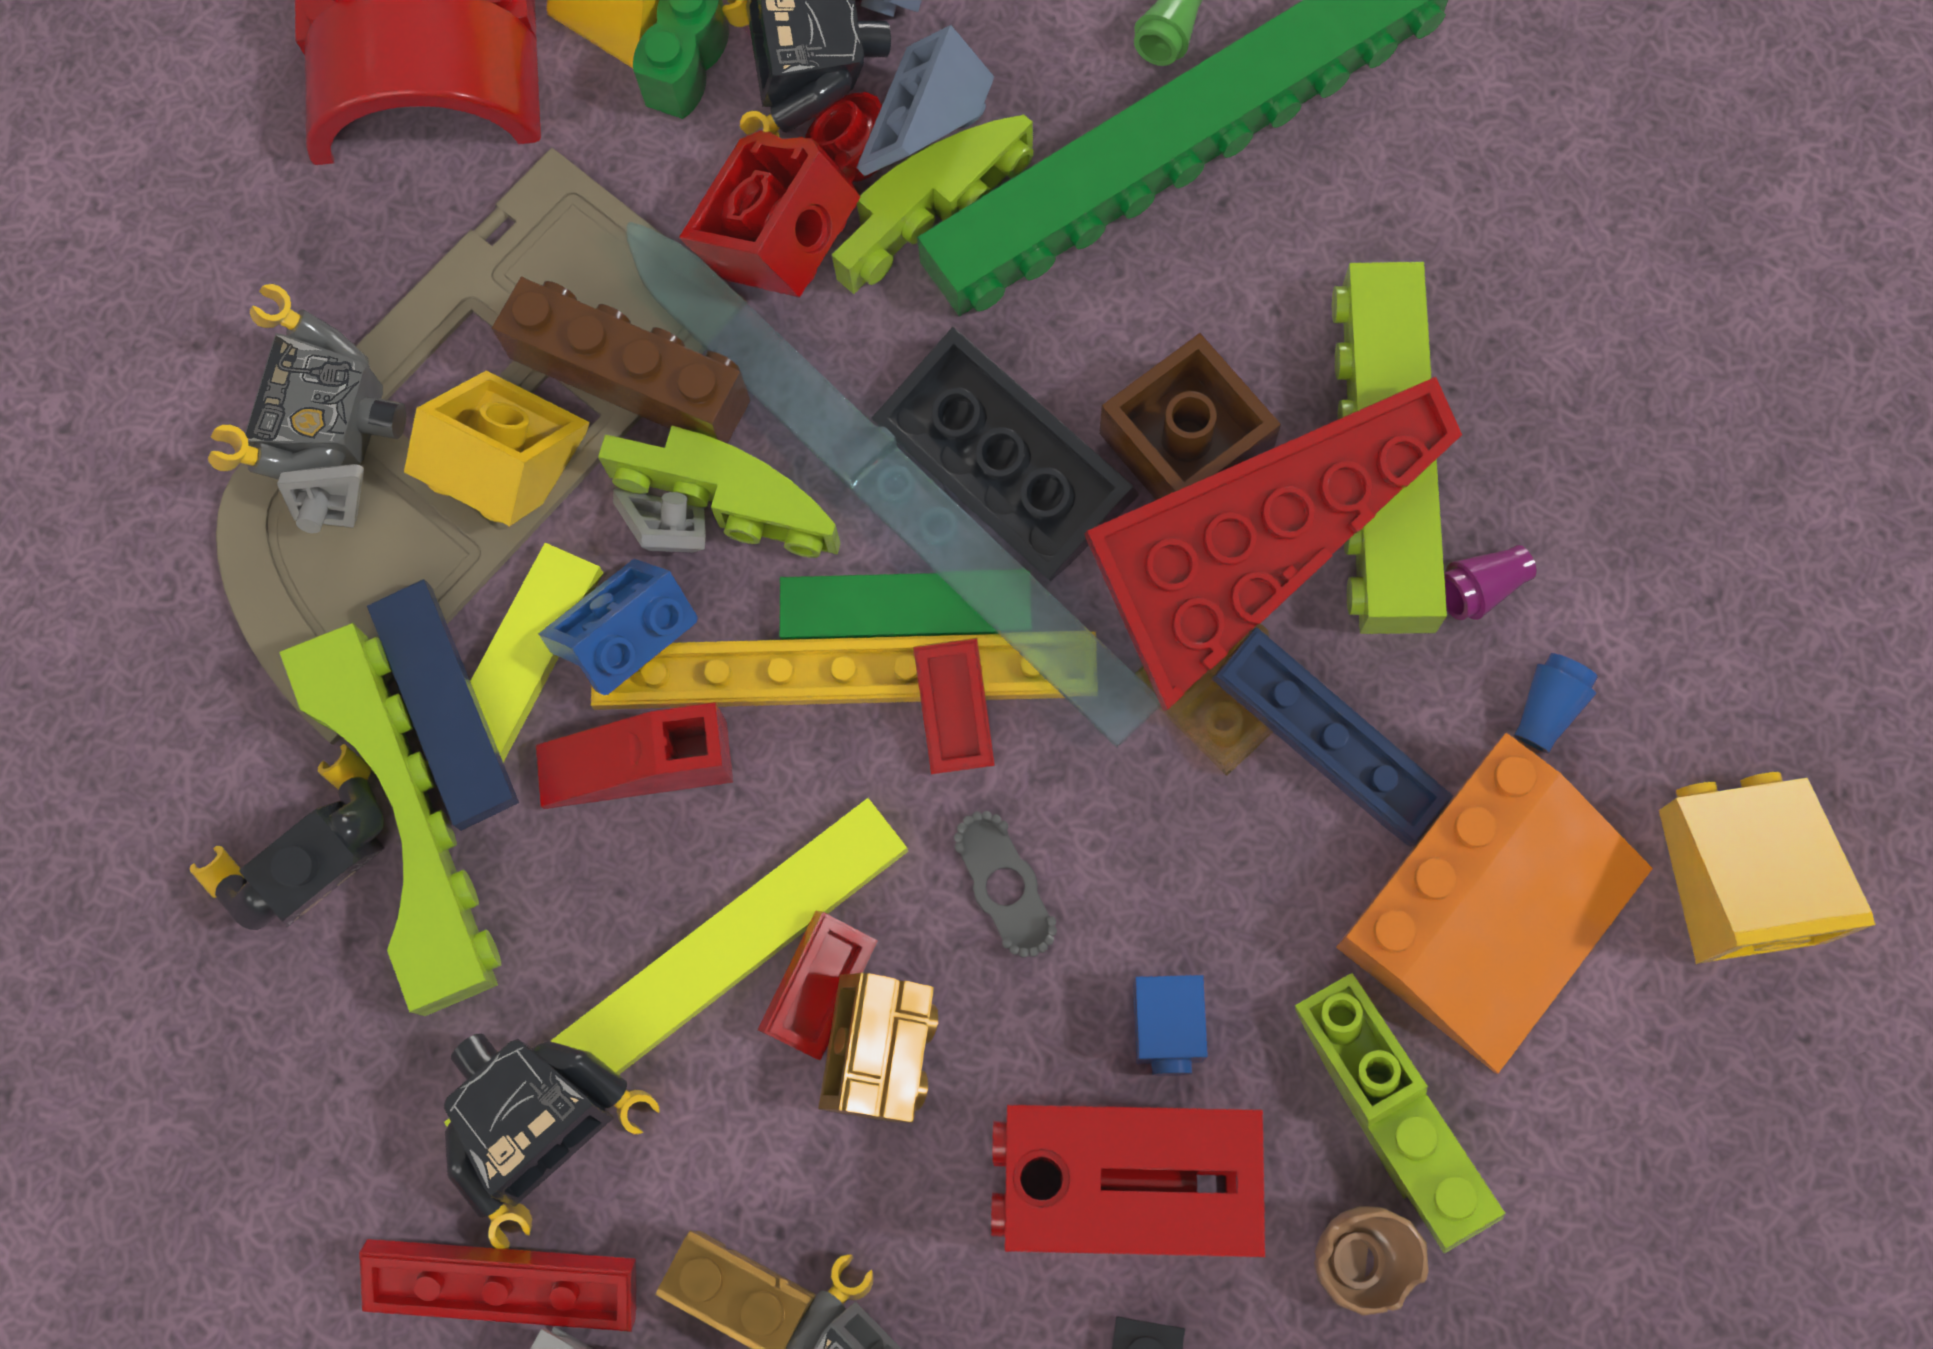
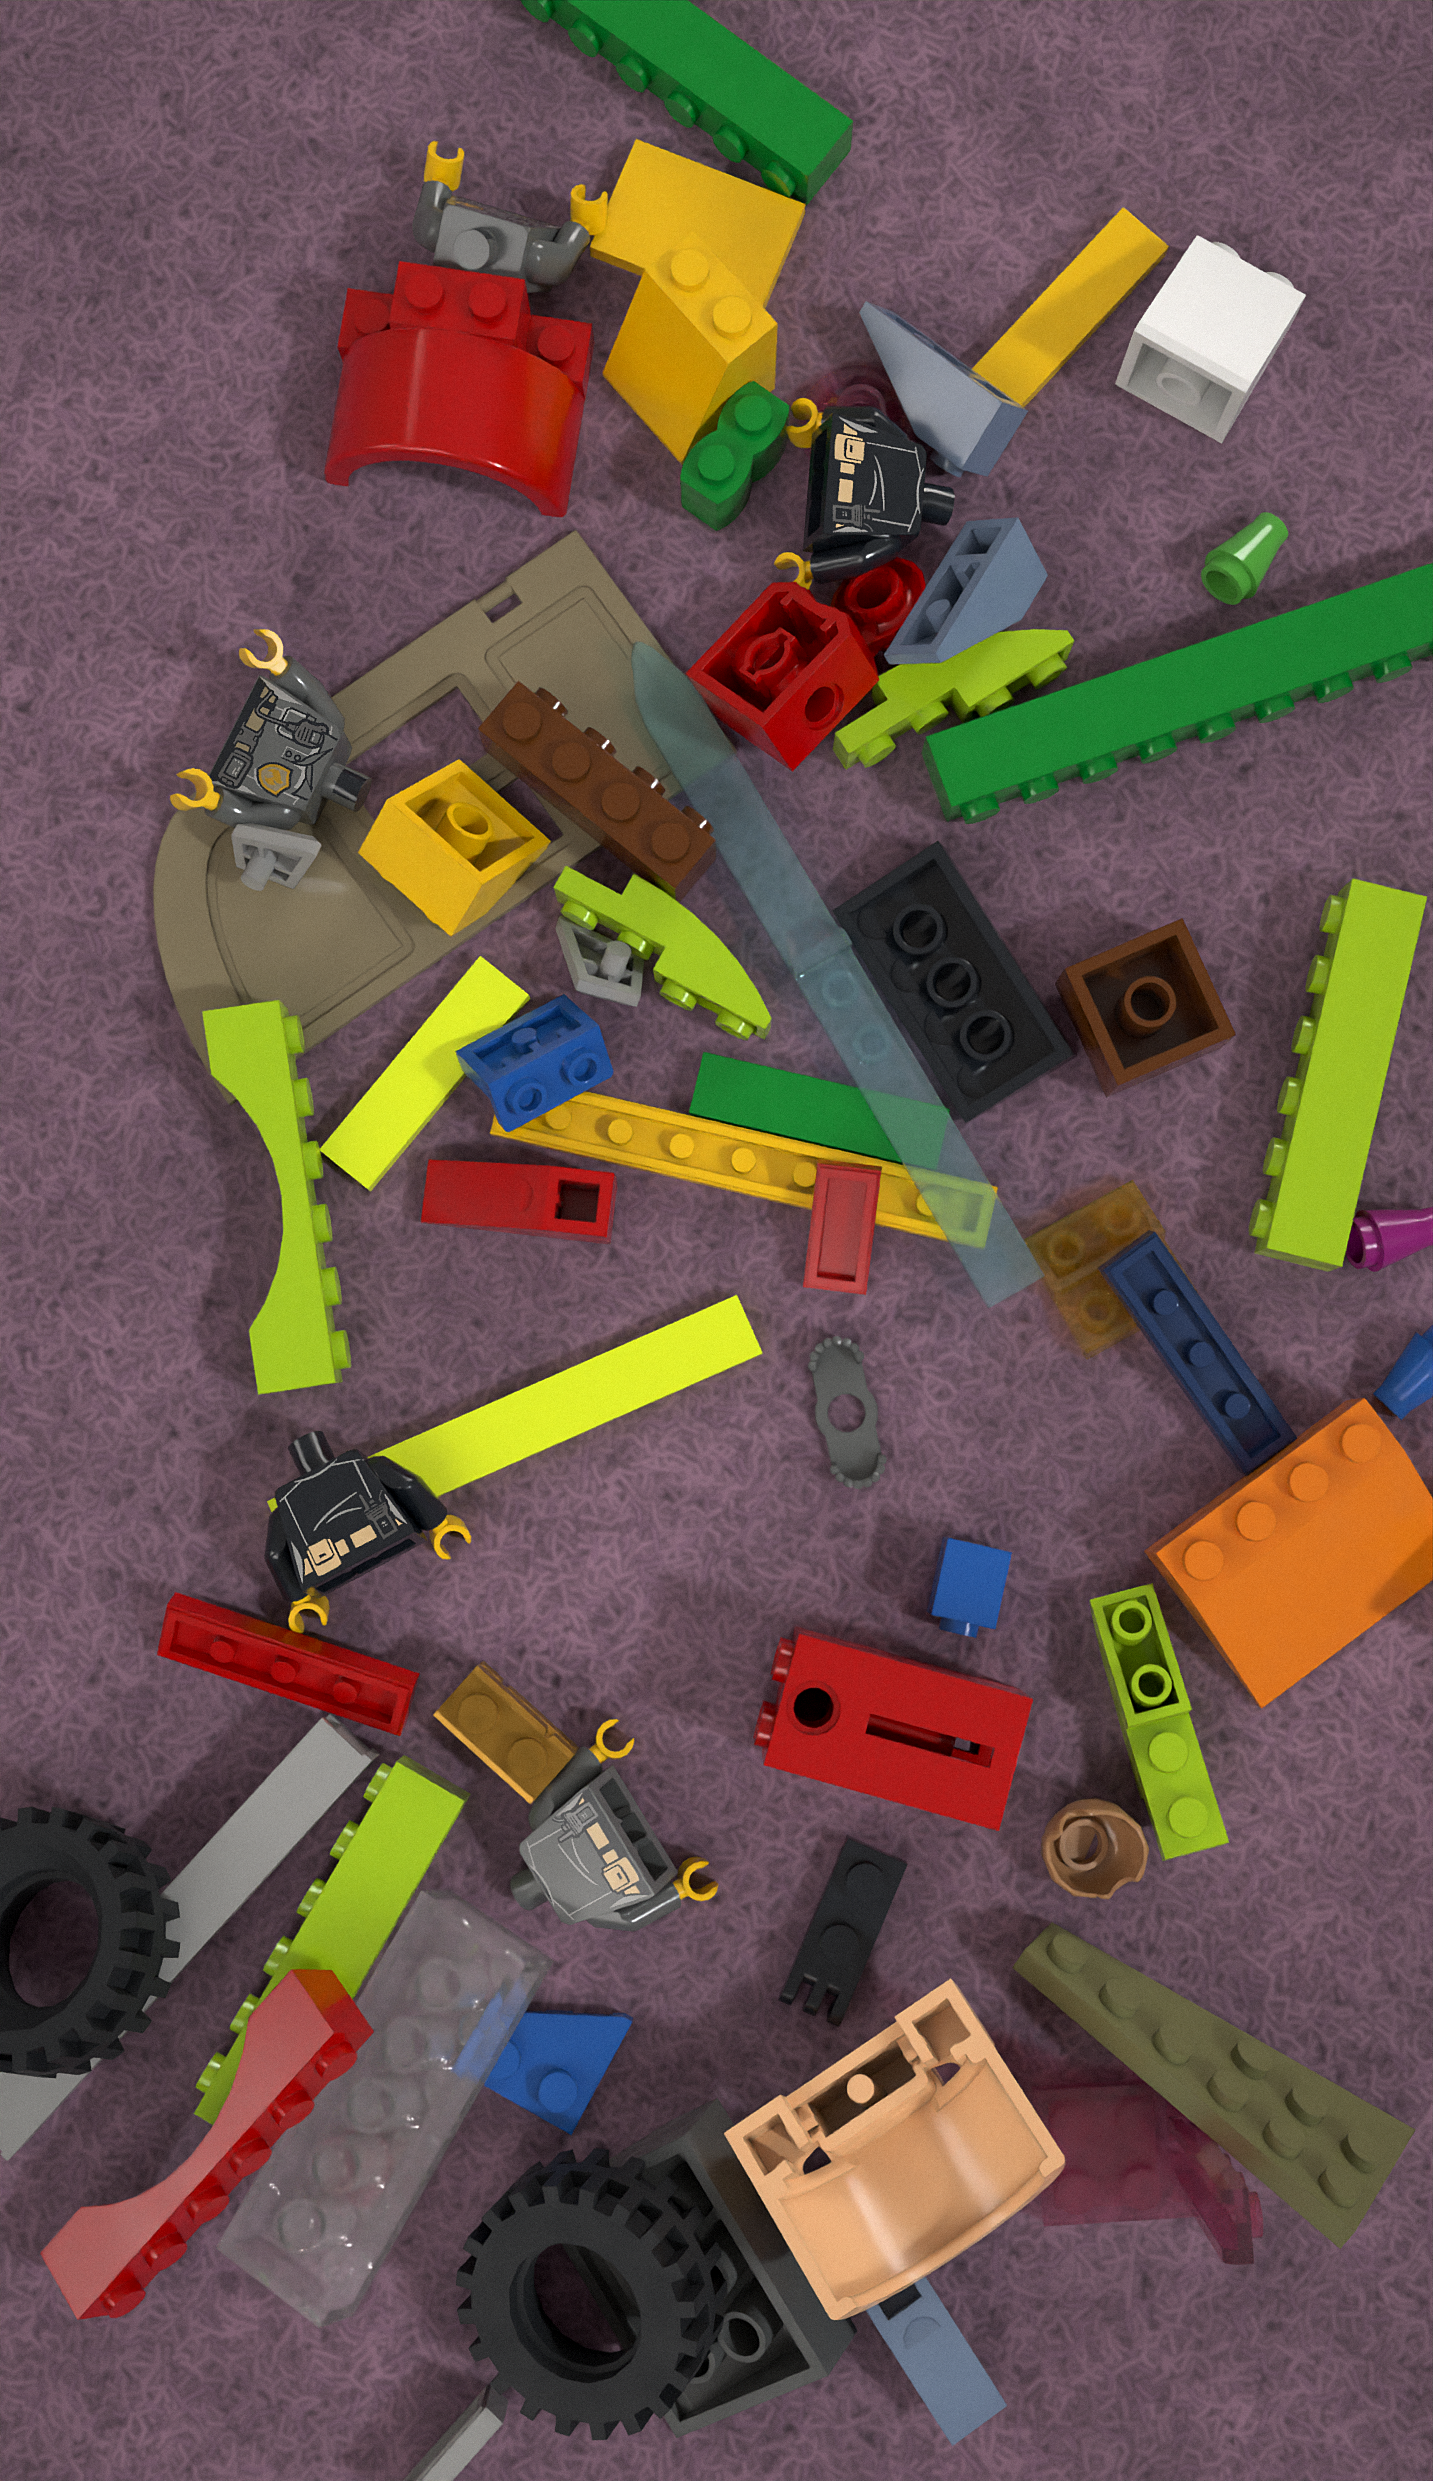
camera: 10 degrees right, 10 degrees up
(307, 858) = (190, 1221): black torso -> none
(442, 705) = (347, 1097): dark blue tile -> none
(808, 991) = (646, 1463): red tile -> none
(878, 1048) = (689, 1540): brick -> none
(1234, 546) = (1162, 1143): red wing -> none

